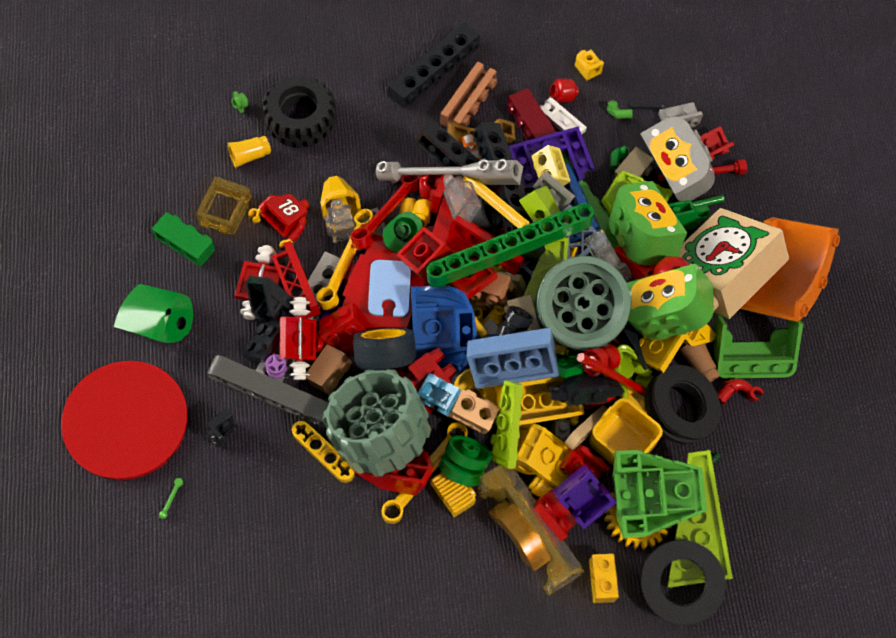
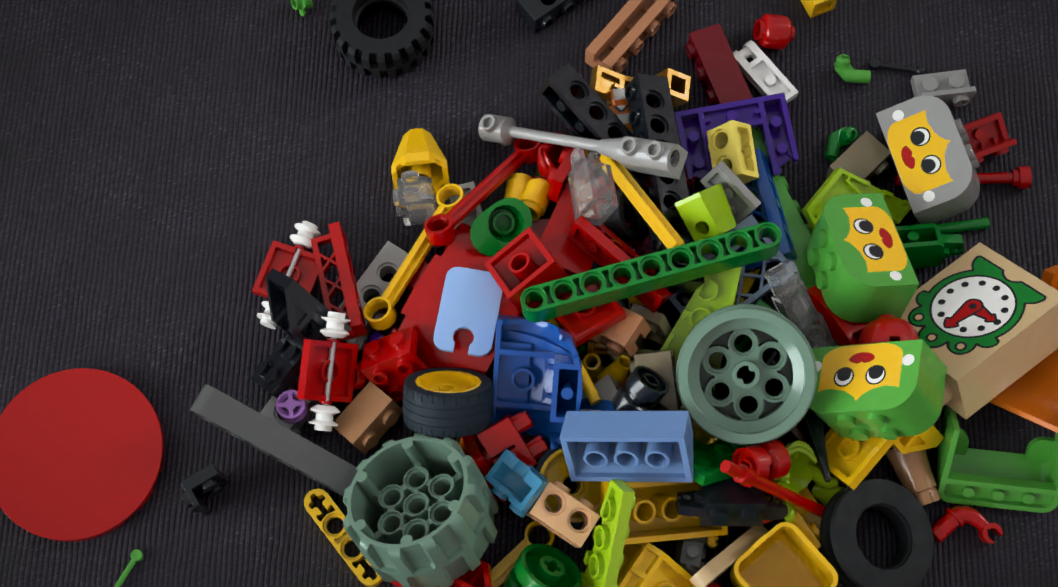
camera: 15 degrees right, 5 degrees up
(145, 313) = (122, 303): green piece -> none
(183, 239) = (193, 197): green brick -> none
(230, 190) = (269, 131): clear yellow window -> none
(248, 150) = (303, 75): yellow plant -> none
(284, 214) = (339, 178): red torso -> none

